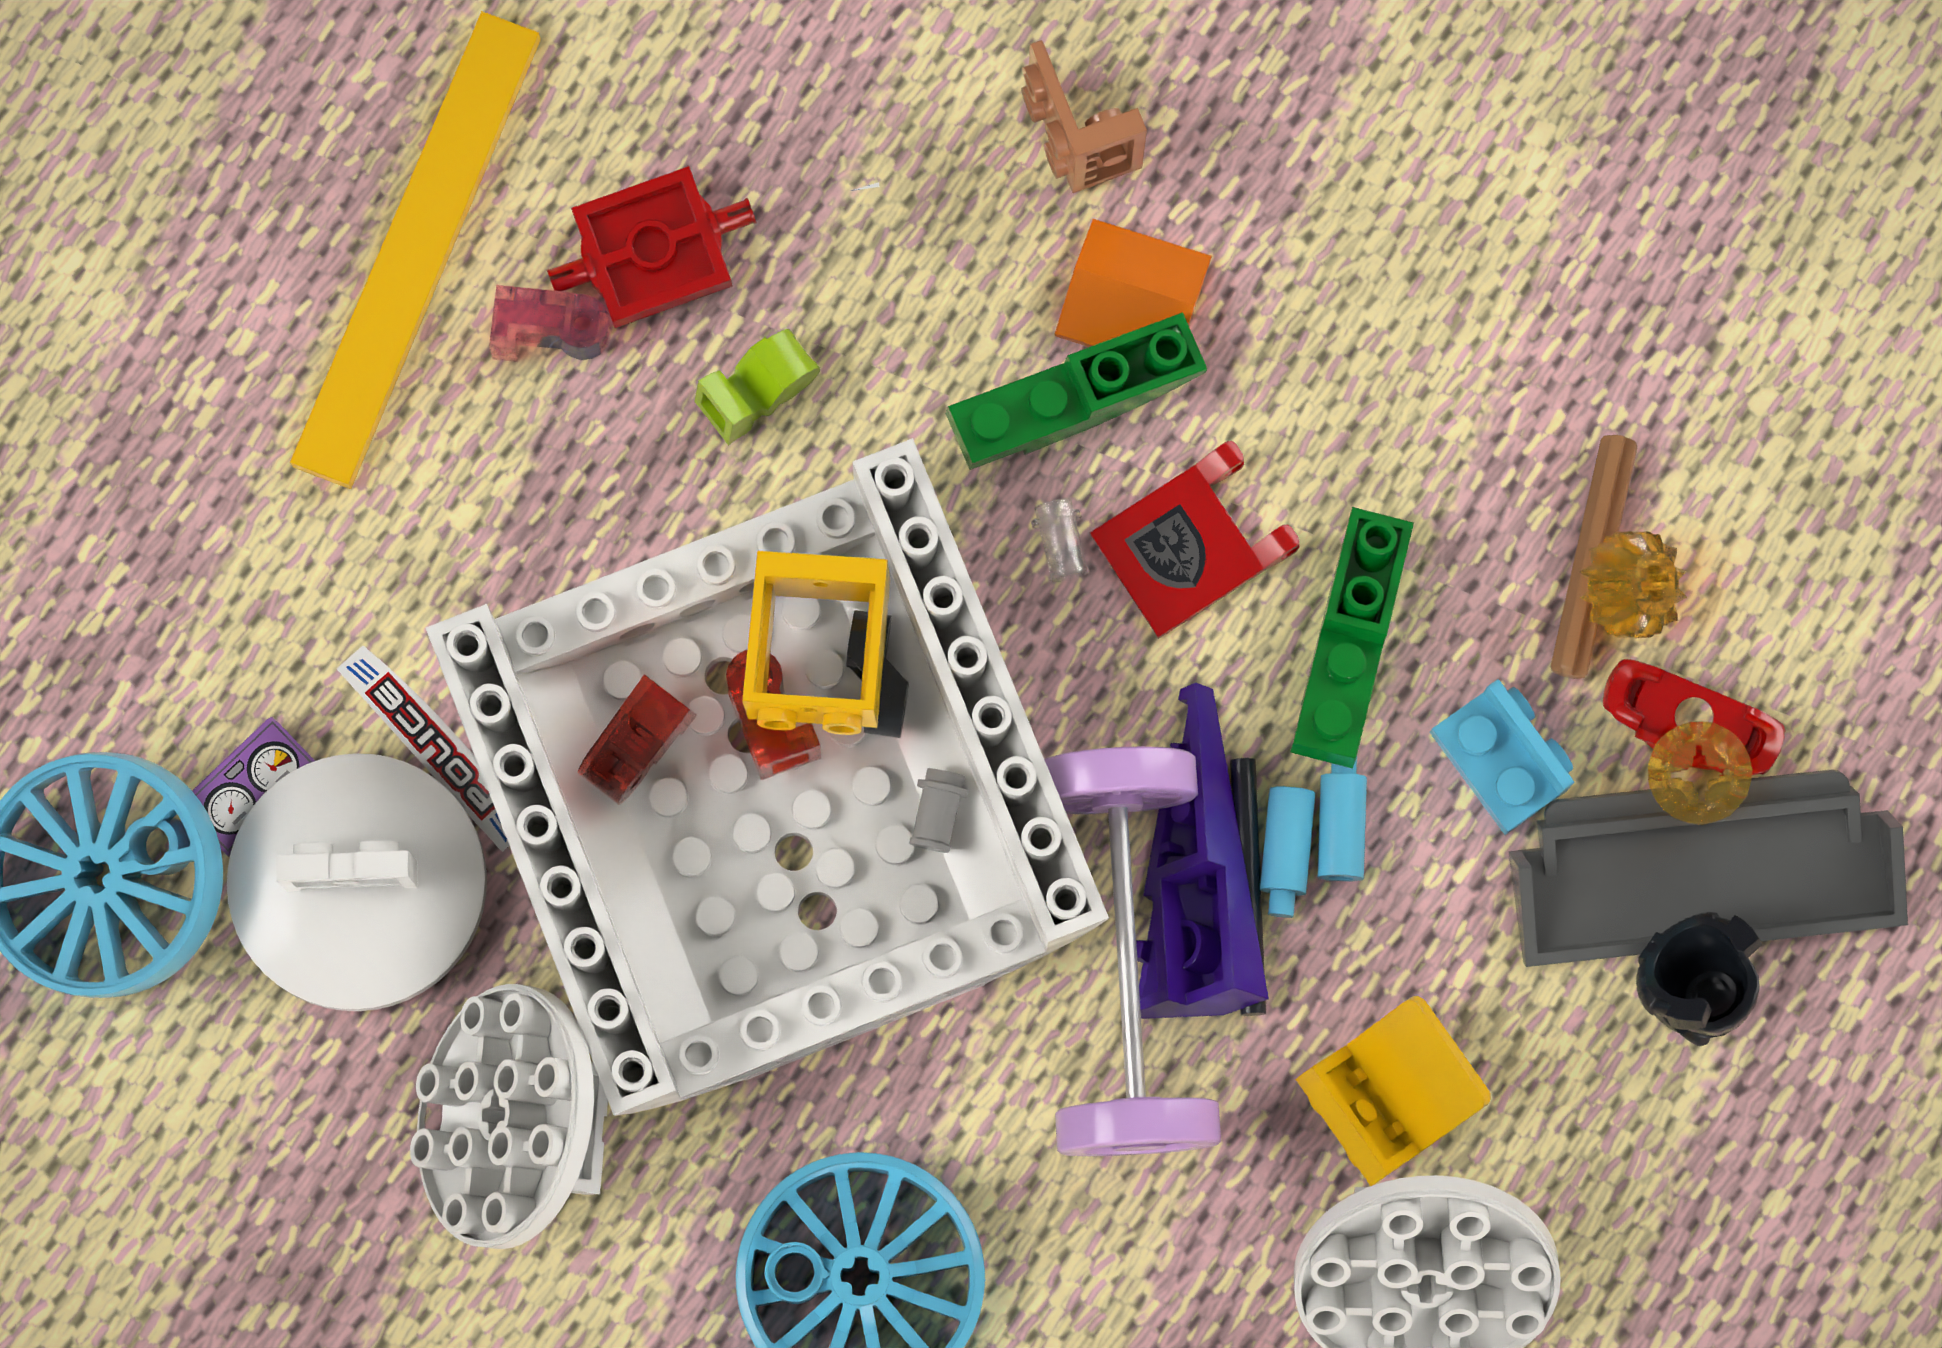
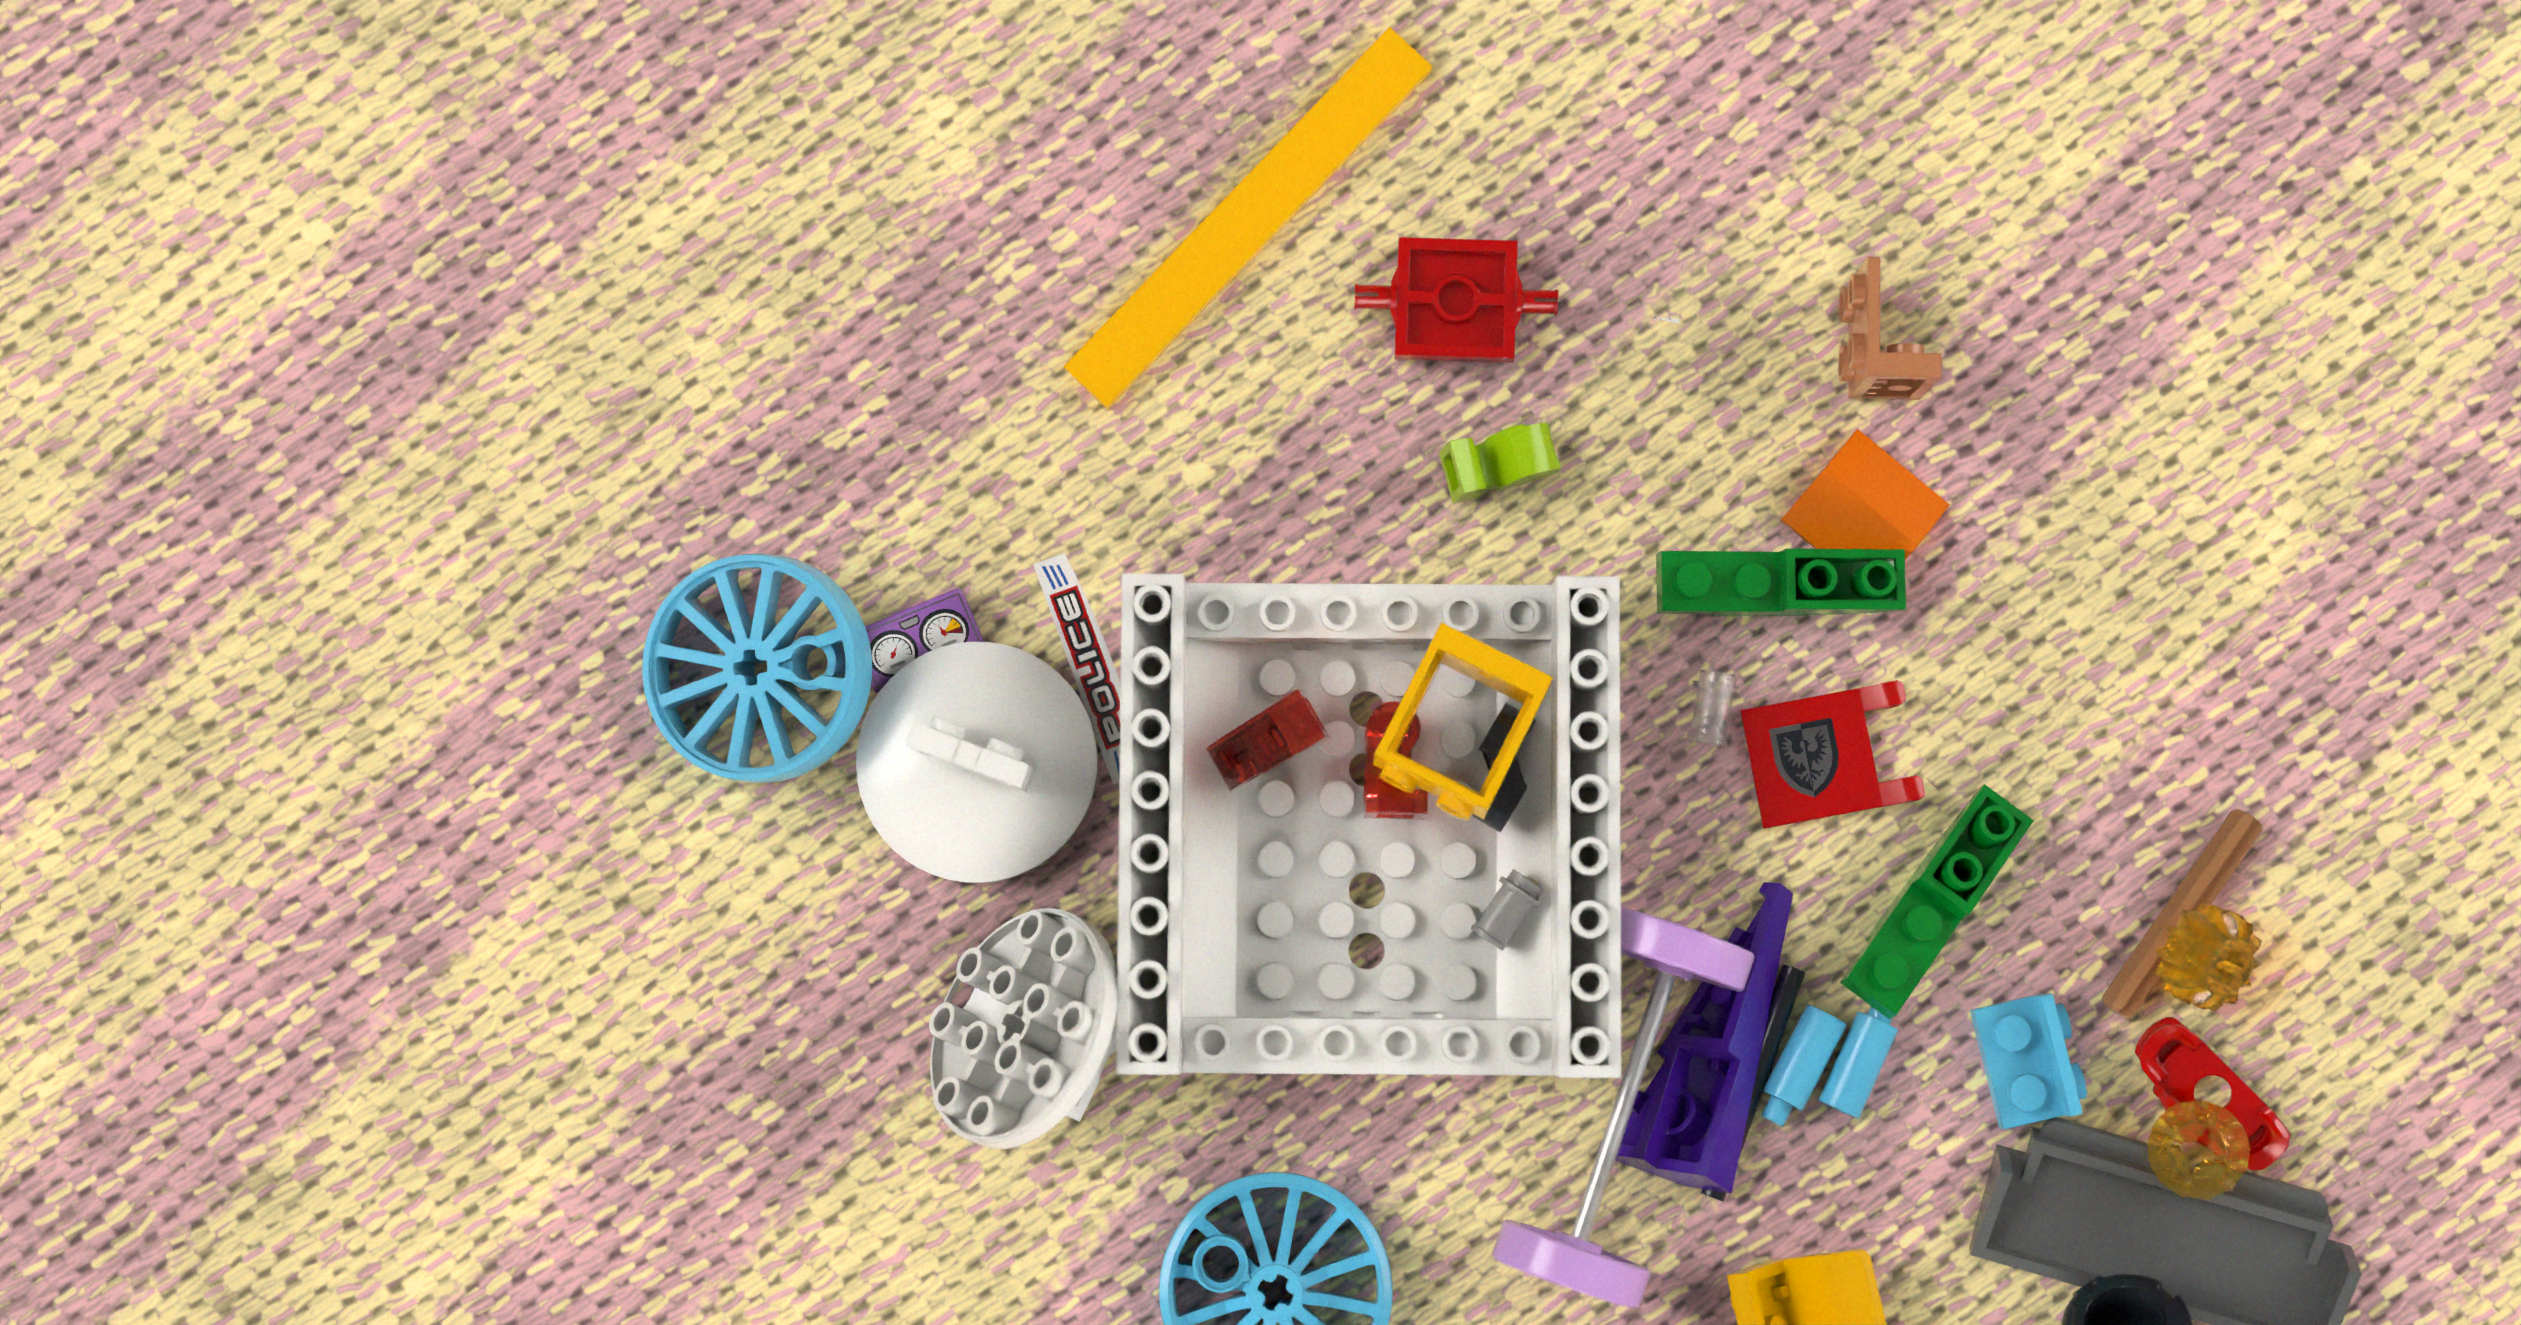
camera: 30 degrees right, 5 degrees up
(547, 320) = (1339, 329): clear pink leg -> none

